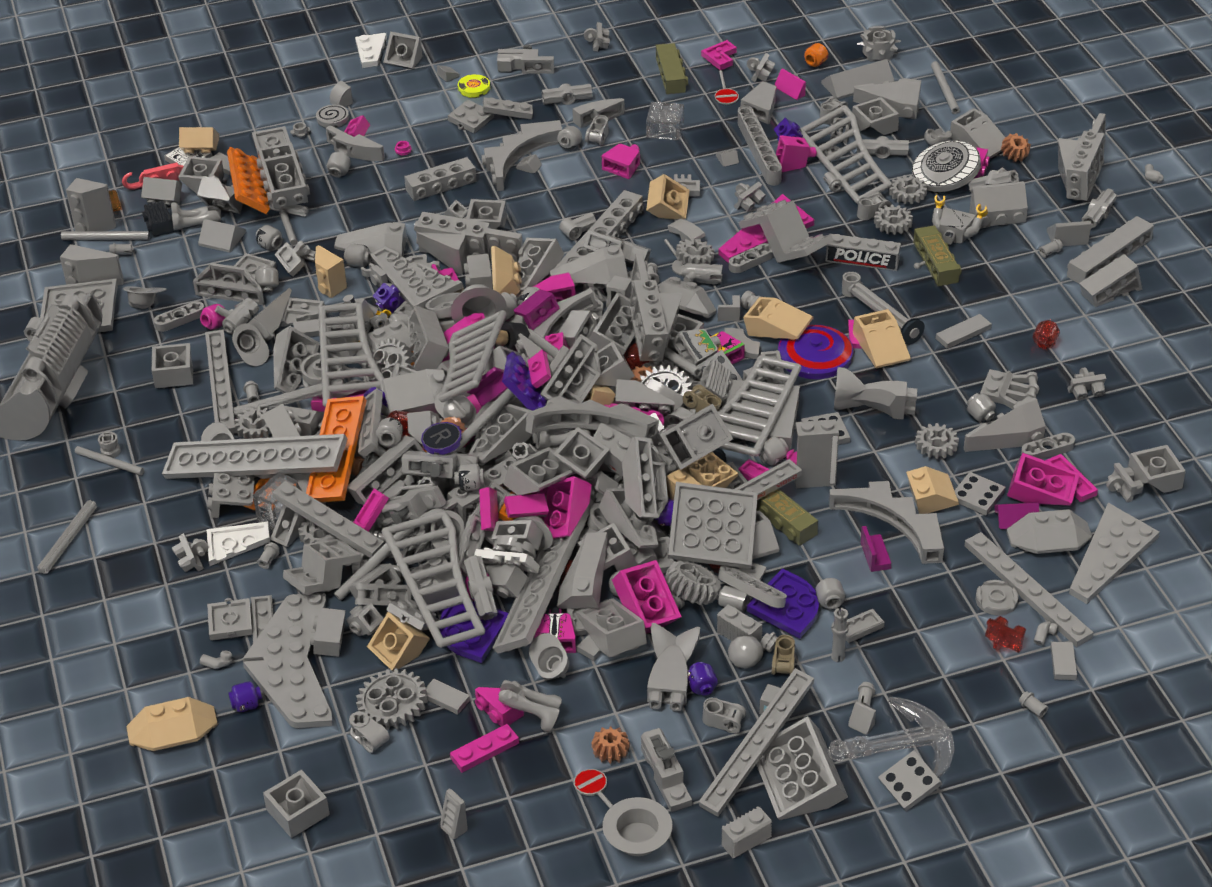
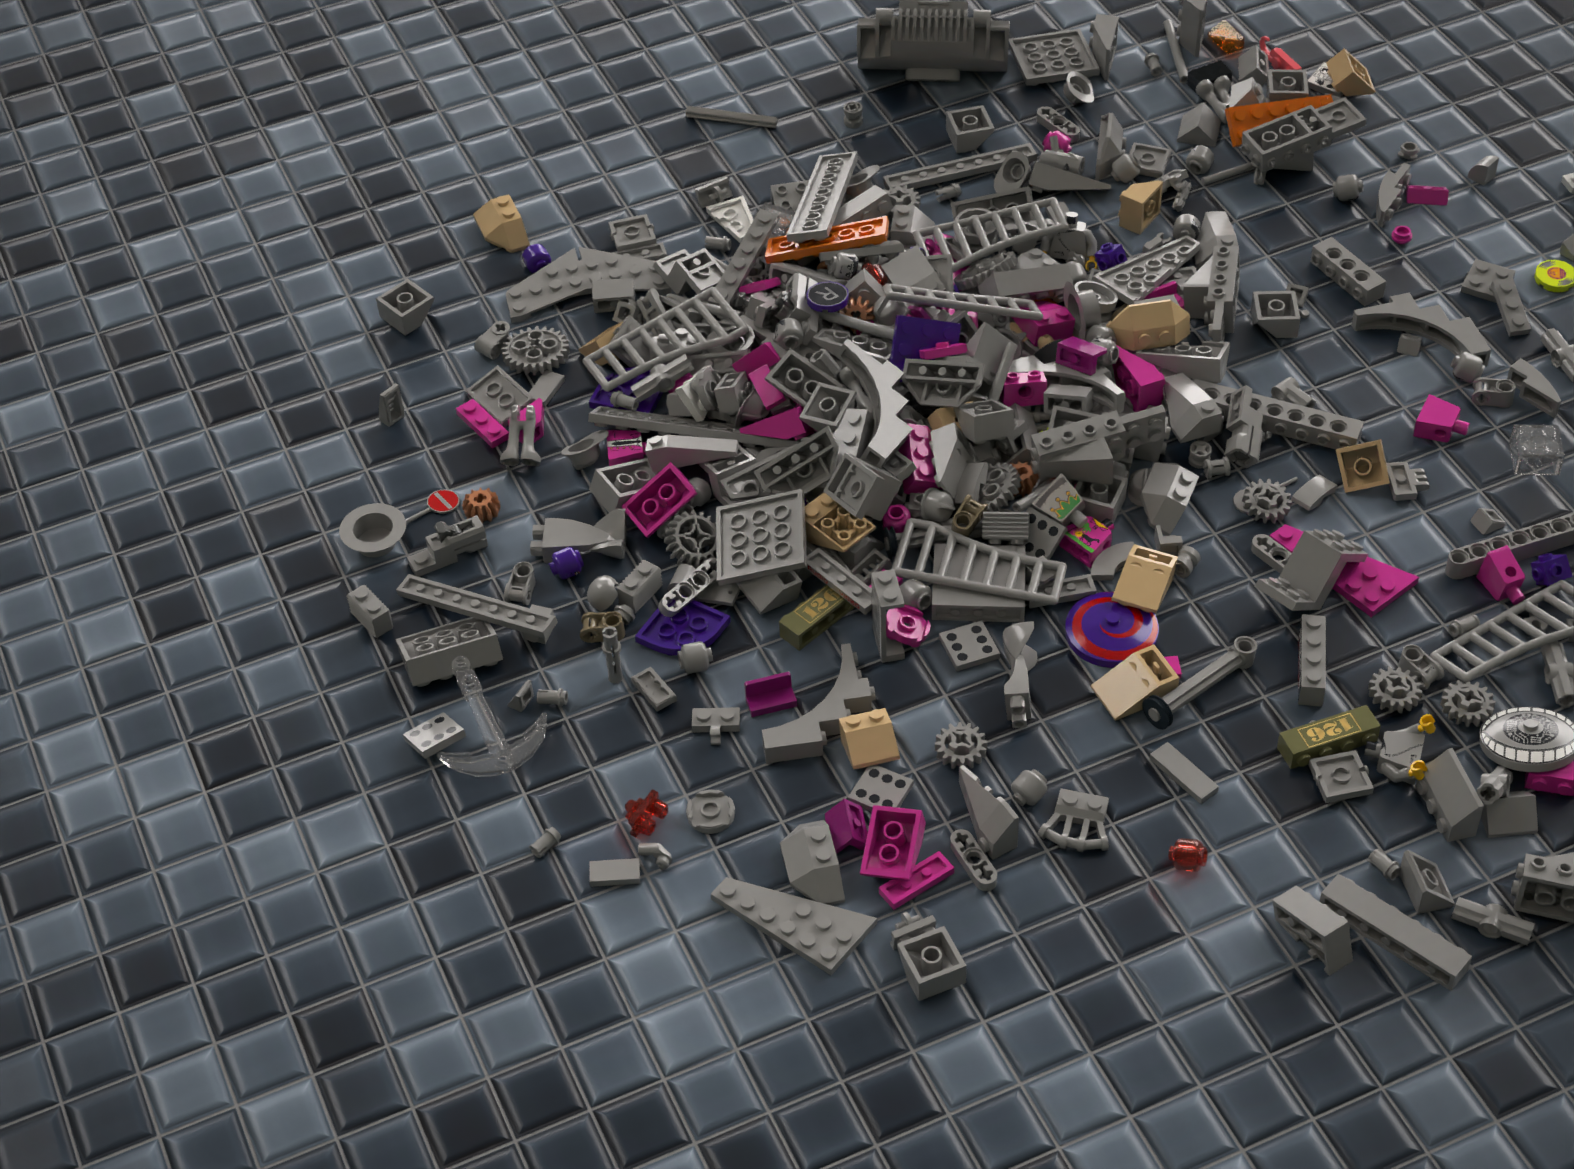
camera: 85 degrees right, 5 degrees up
(109, 460) = (835, 125): light grey bar -> none
(216, 663) = (581, 235): light grey arm -> none
(286, 398) = (935, 212): light grey axle -> none
(300, 310) = (1082, 202): light grey wing -> none
(332, 115) = (1447, 171): light grey tile -> none
(451, 729) = (498, 393): none -> light grey tile
(492, 628) = (628, 402): none -> light grey pin
(702, 272) = (1229, 513): light grey piece -> none
(746, 194) = (1401, 539): light grey hips -> none
(898, 588) = (716, 721): none -> light grey plate
(972, 256) = (1341, 776): none -> light grey plate
(1029, 589) = (725, 840): light grey plate -> none
(1087, 381) = (1098, 908): light grey hips -> none

